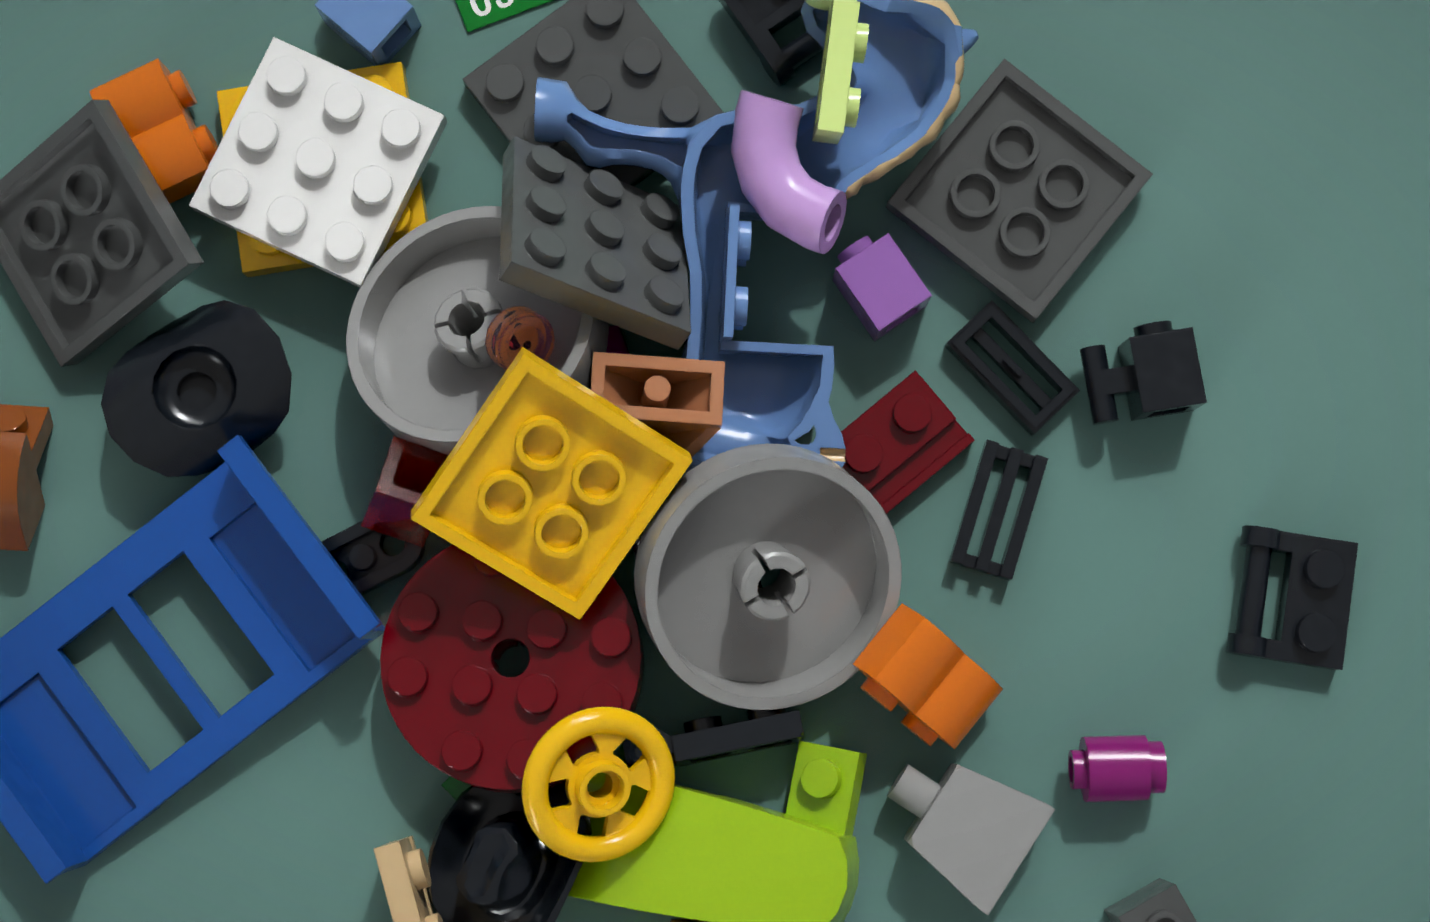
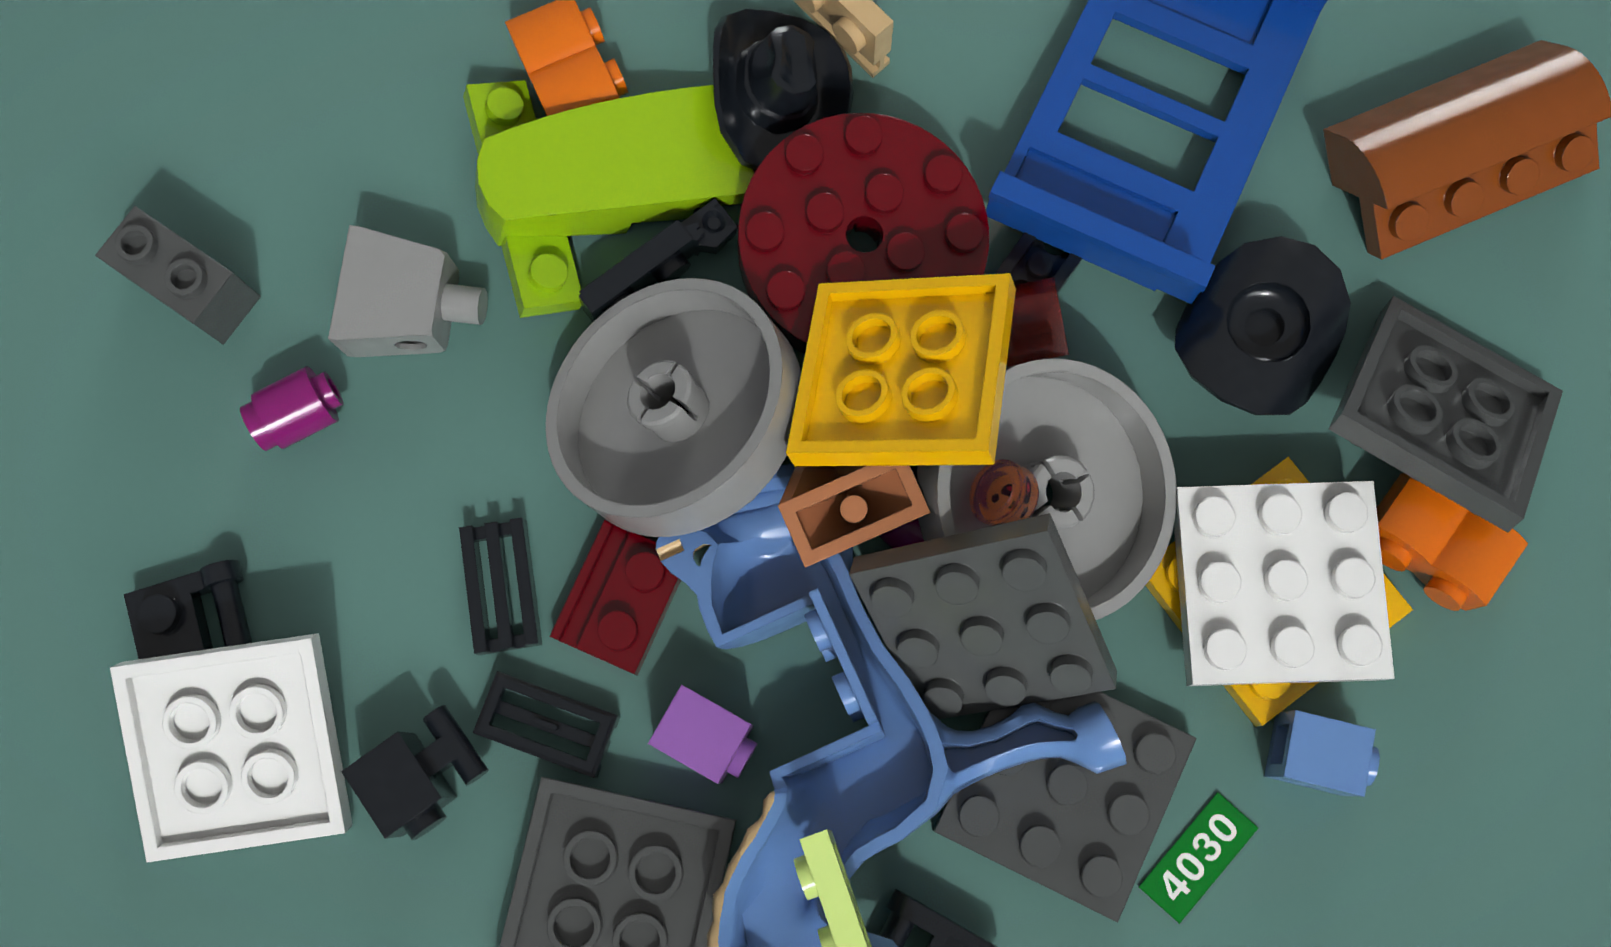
camera: 155 degrees right, 5 degrees down
(550, 763) = (731, 146): yellow plate -> none
(775, 179) = (850, 771): lavender cylinder -> none
(927, 677) = (494, 395): orange brick -> none
(1294, 476) = (232, 747): none -> white plate

